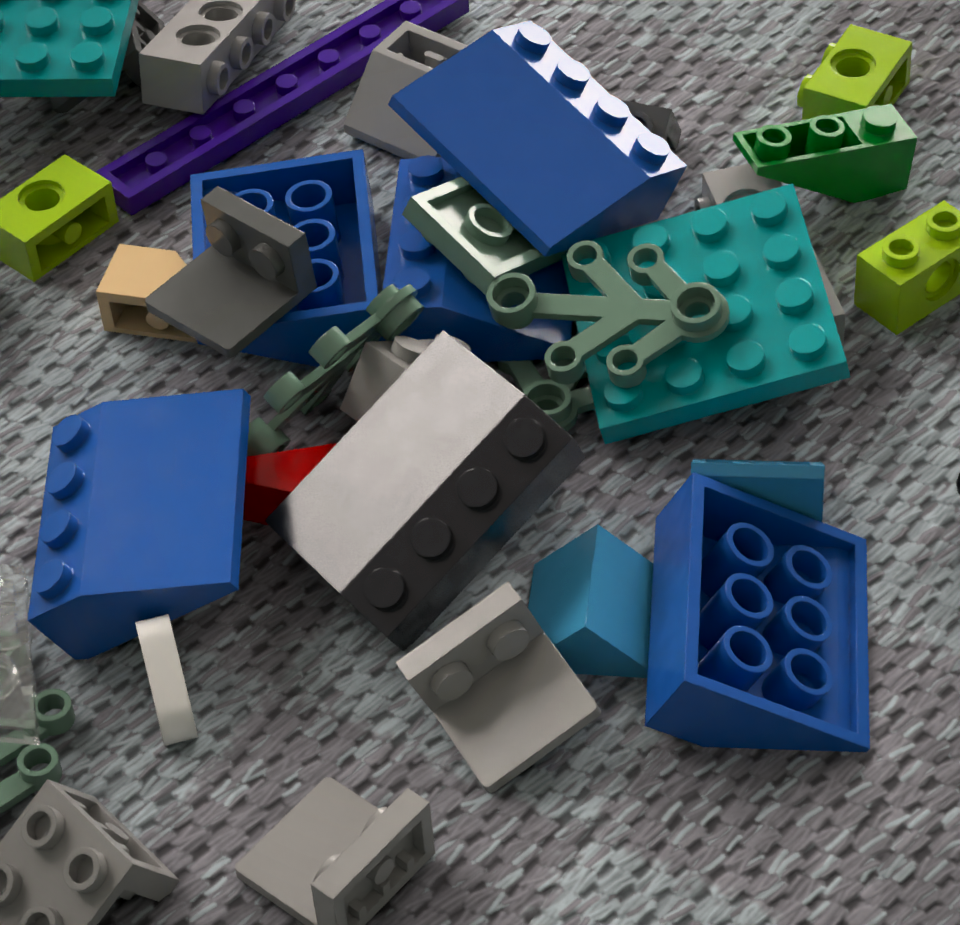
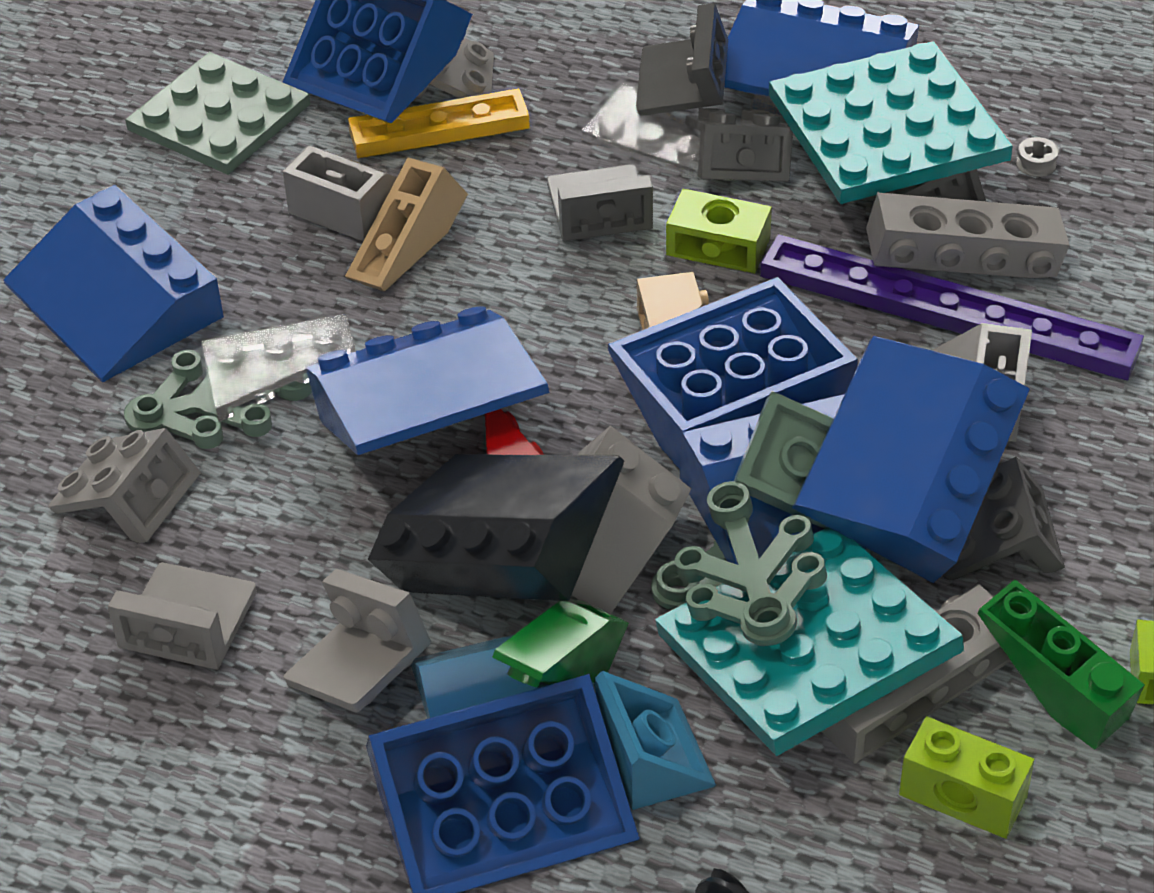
camera: 65 degrees right, 0 degrees up
(166, 680) = (297, 461): white beam -> none
(241, 281) = (651, 339): dark grey bracket -> none
(390, 314) = (585, 417): sand green plant -> none
(630, 492) = (563, 644): none -> green slope

